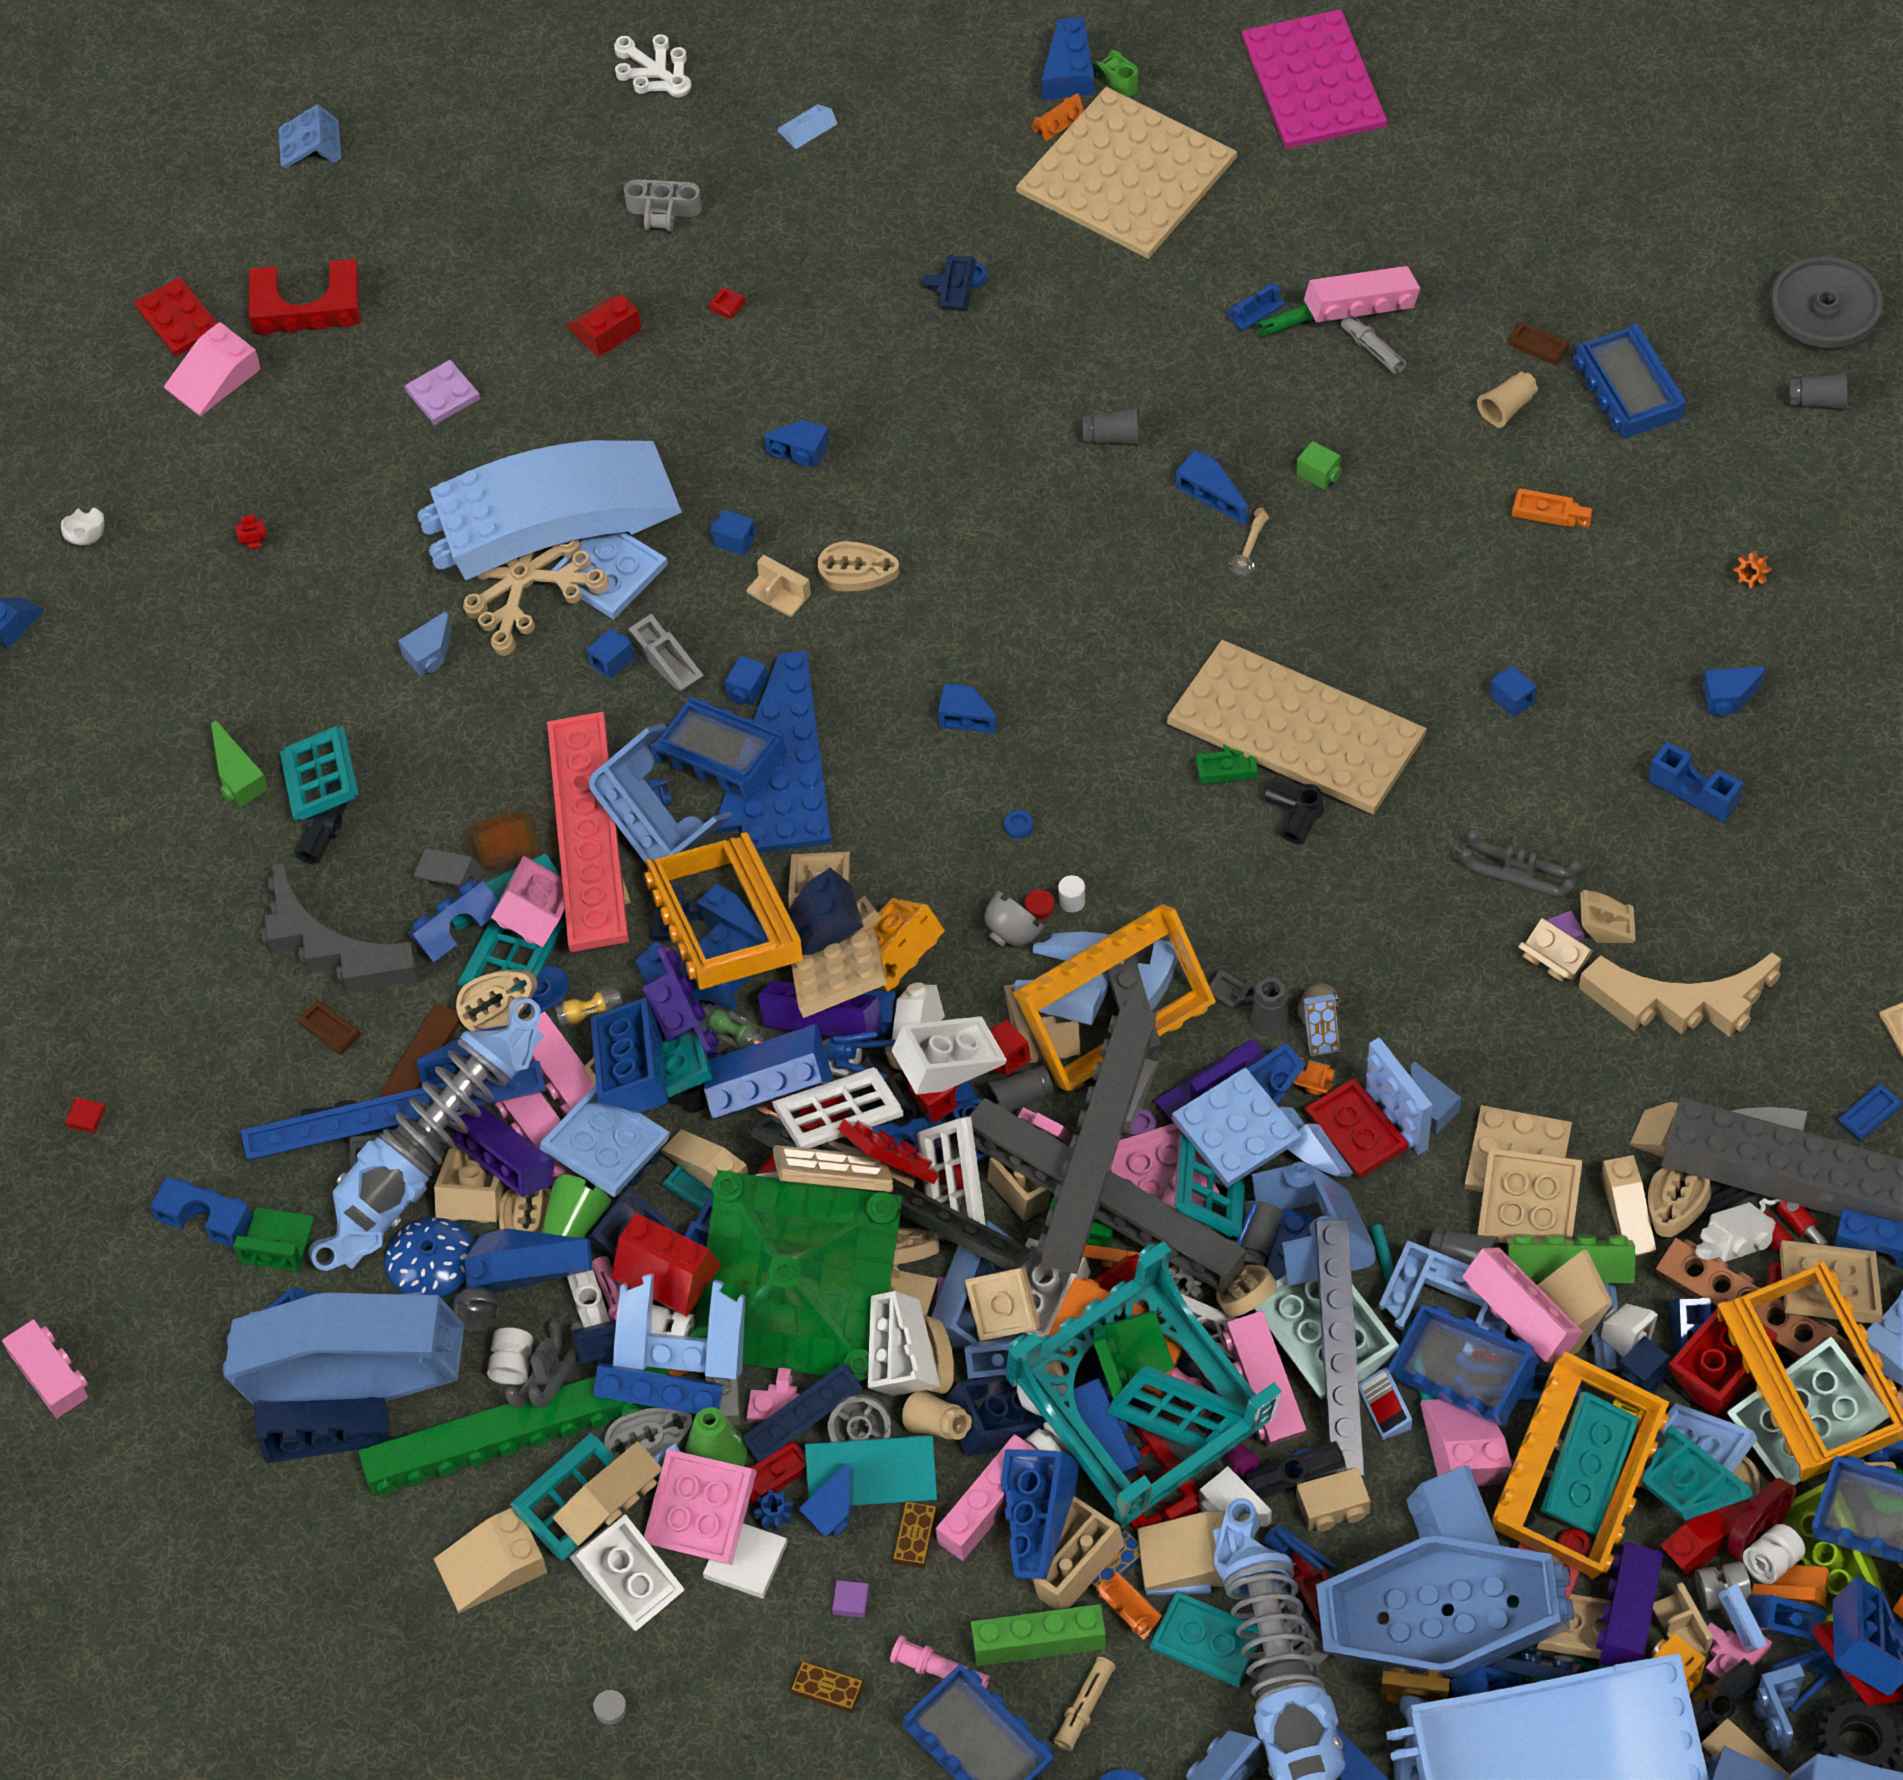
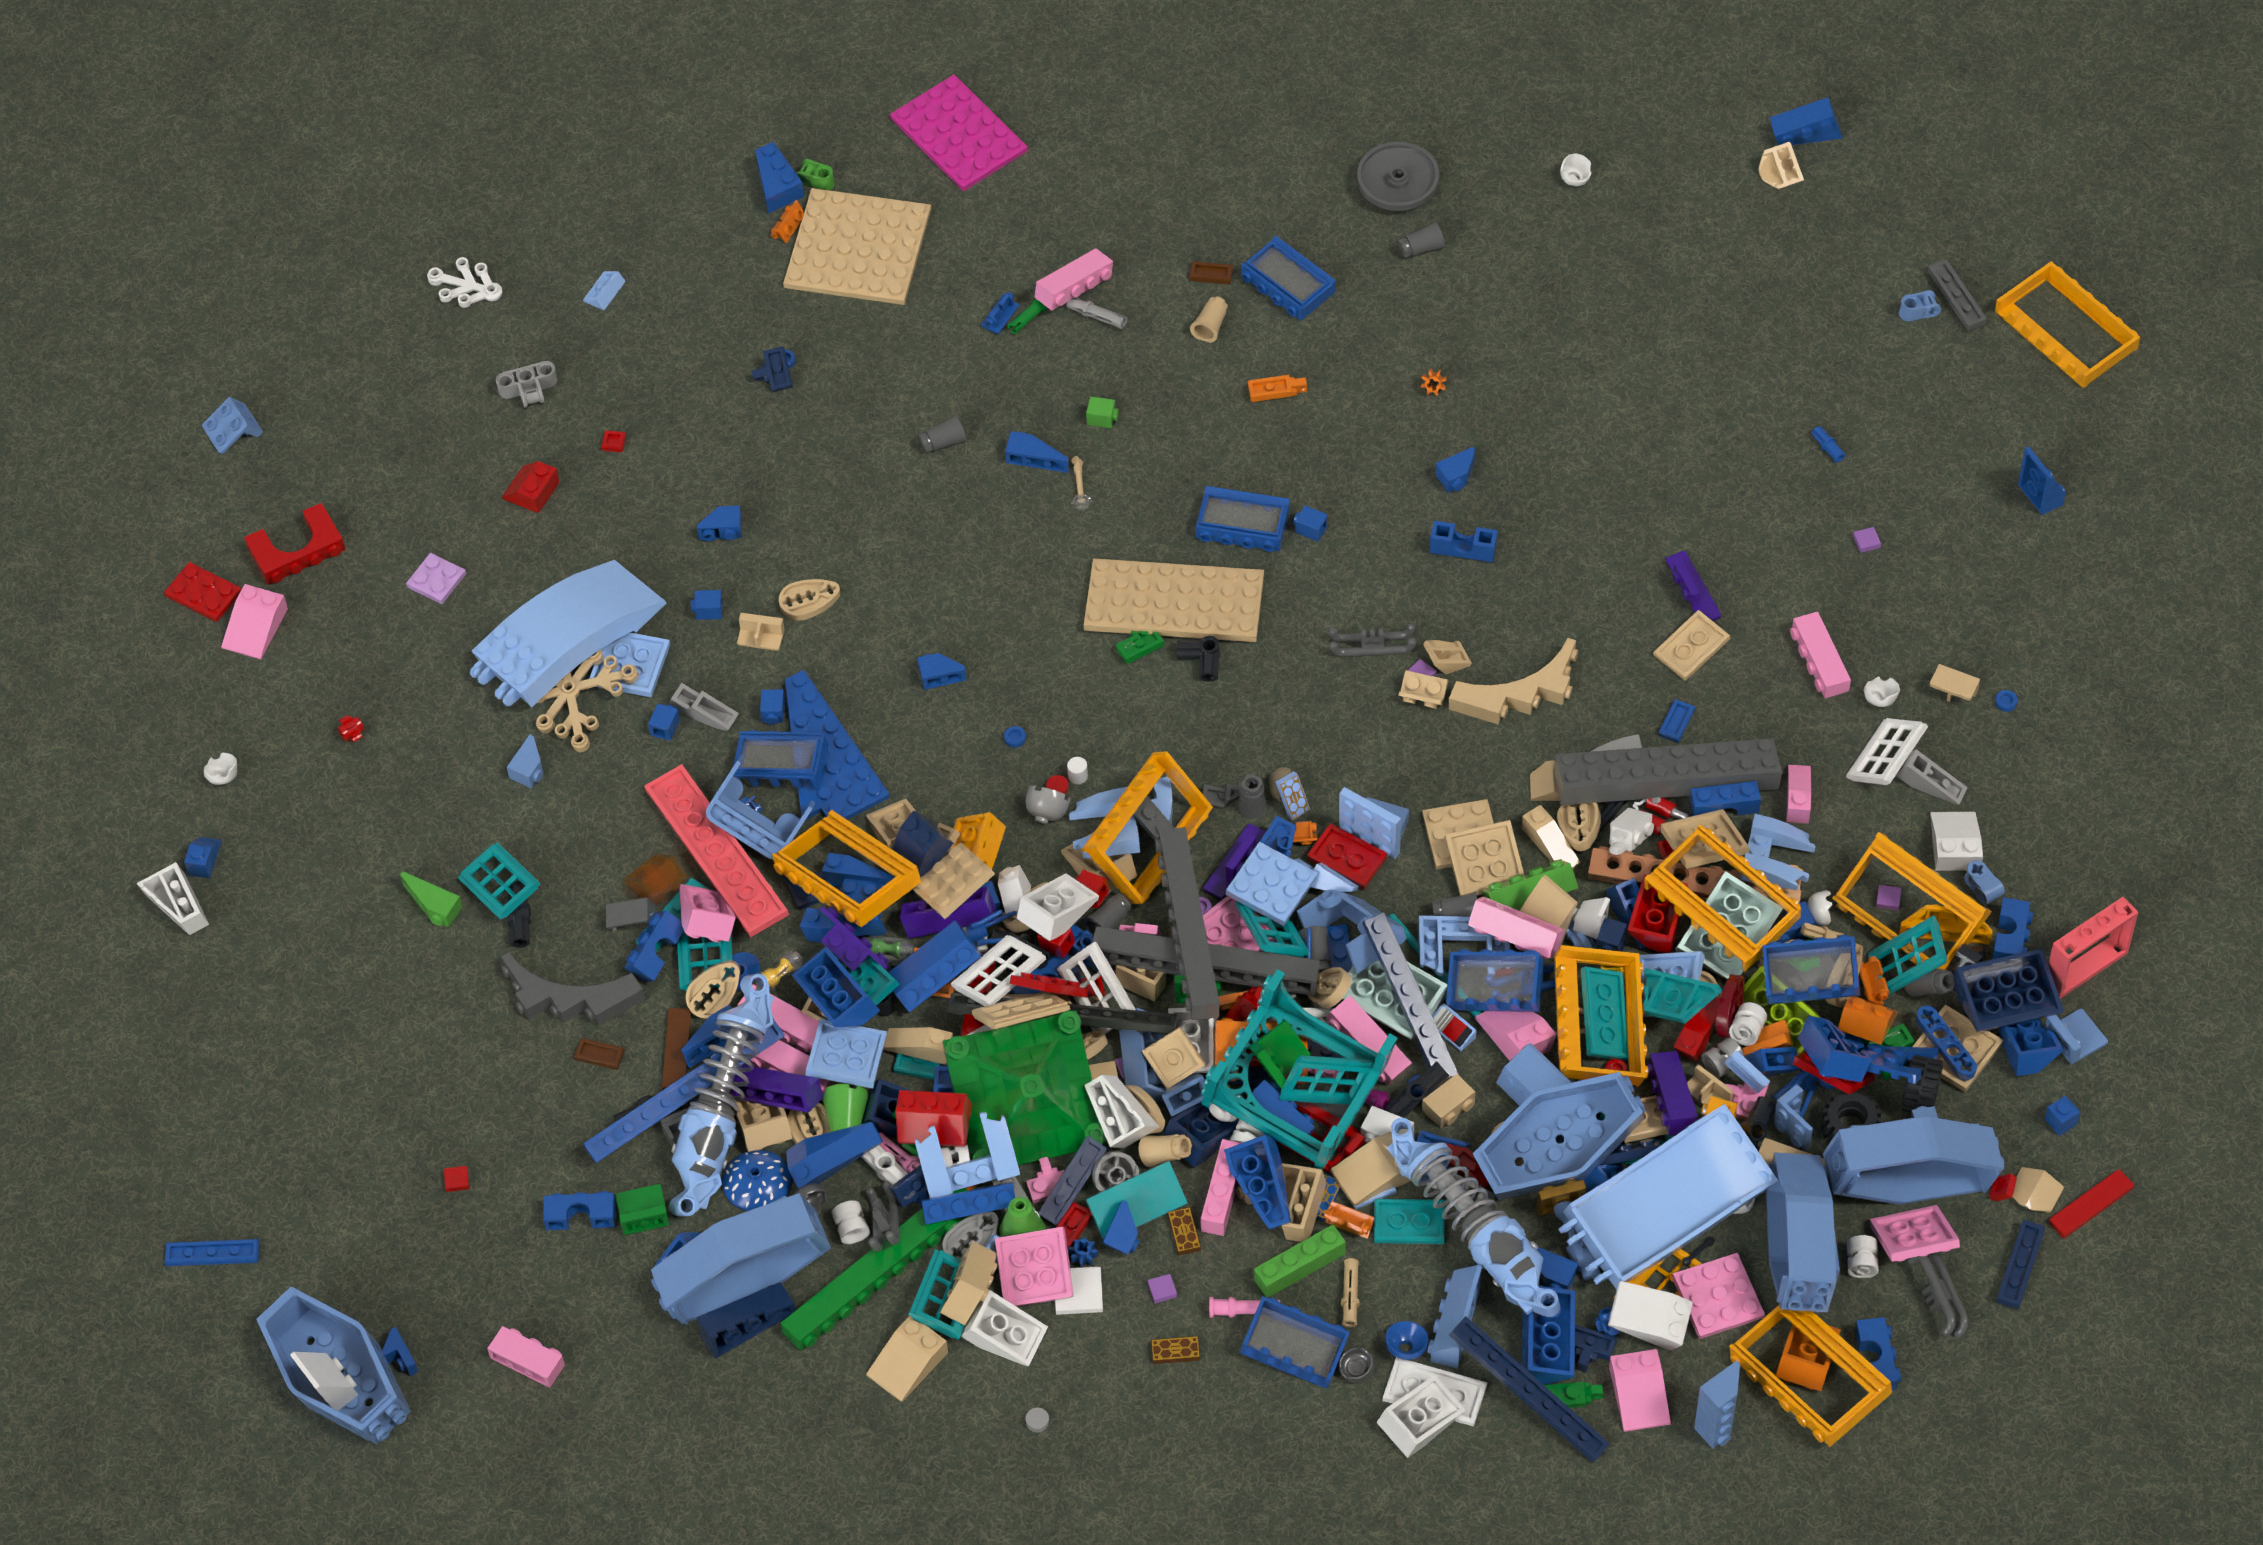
camera: 25 degrees left, 0 degrees up
(1430, 655) = (1242, 518): none -> blue window

